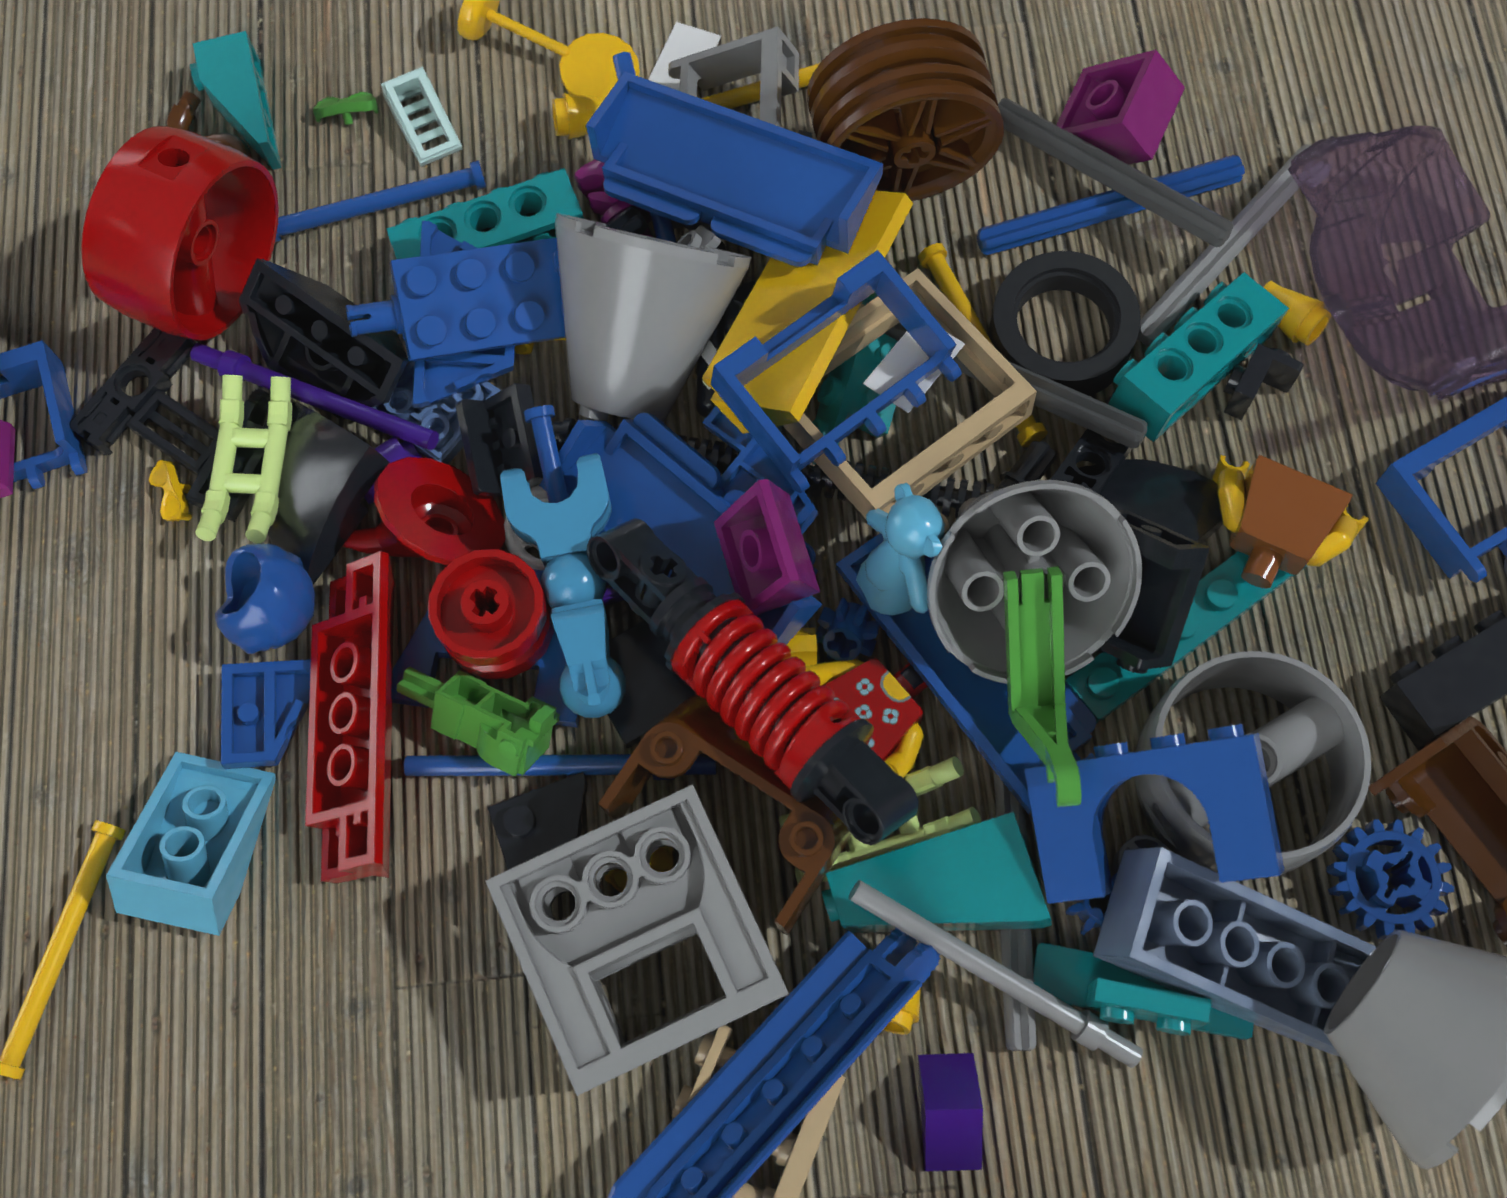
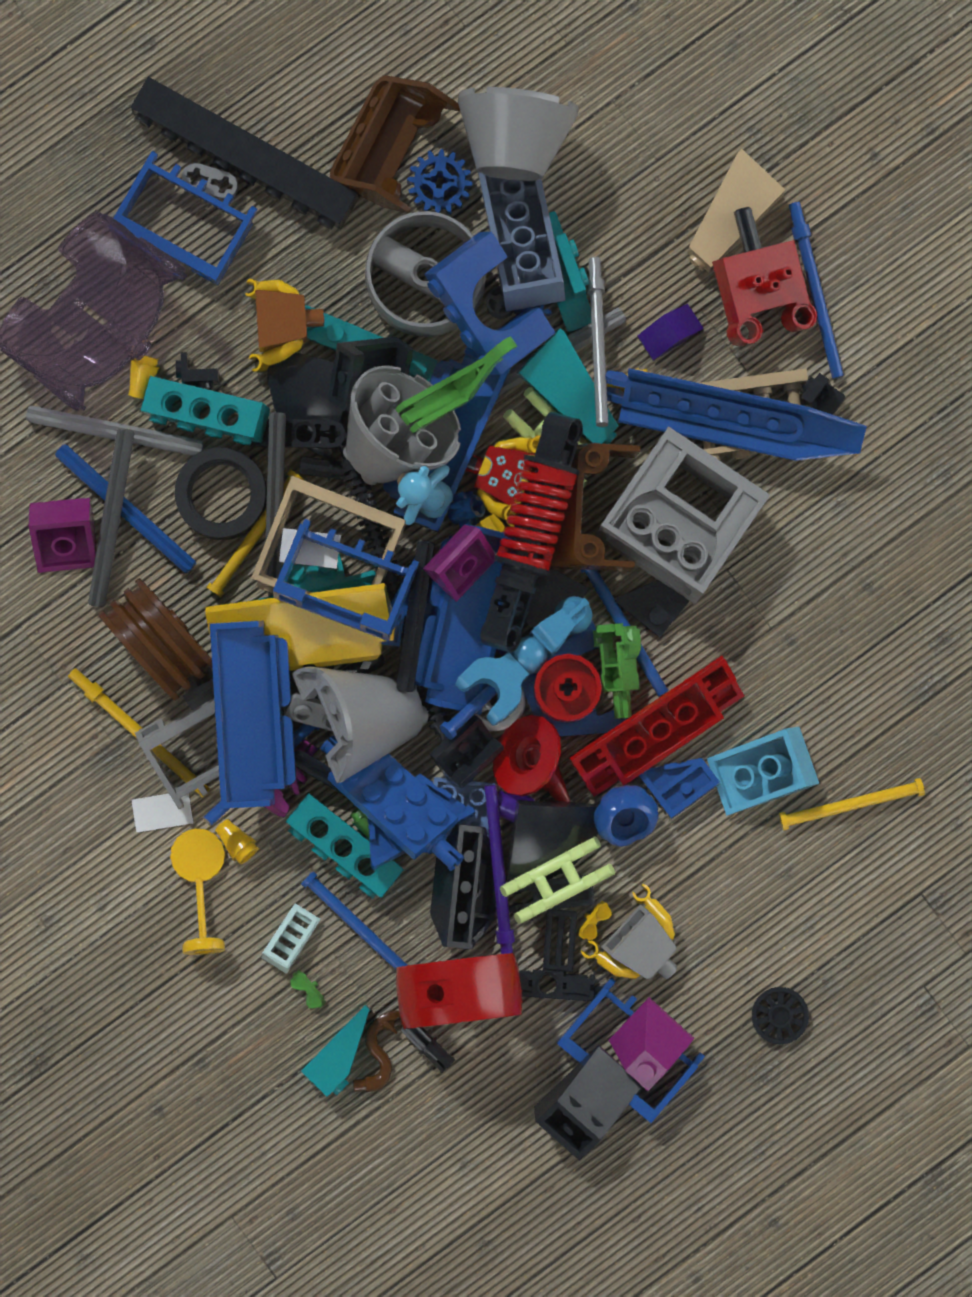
camera: 125 degrees left, 15 degrees up
(88, 523) = (640, 943): none -> light grey torso
(723, 451) = (415, 619): none -> black axle

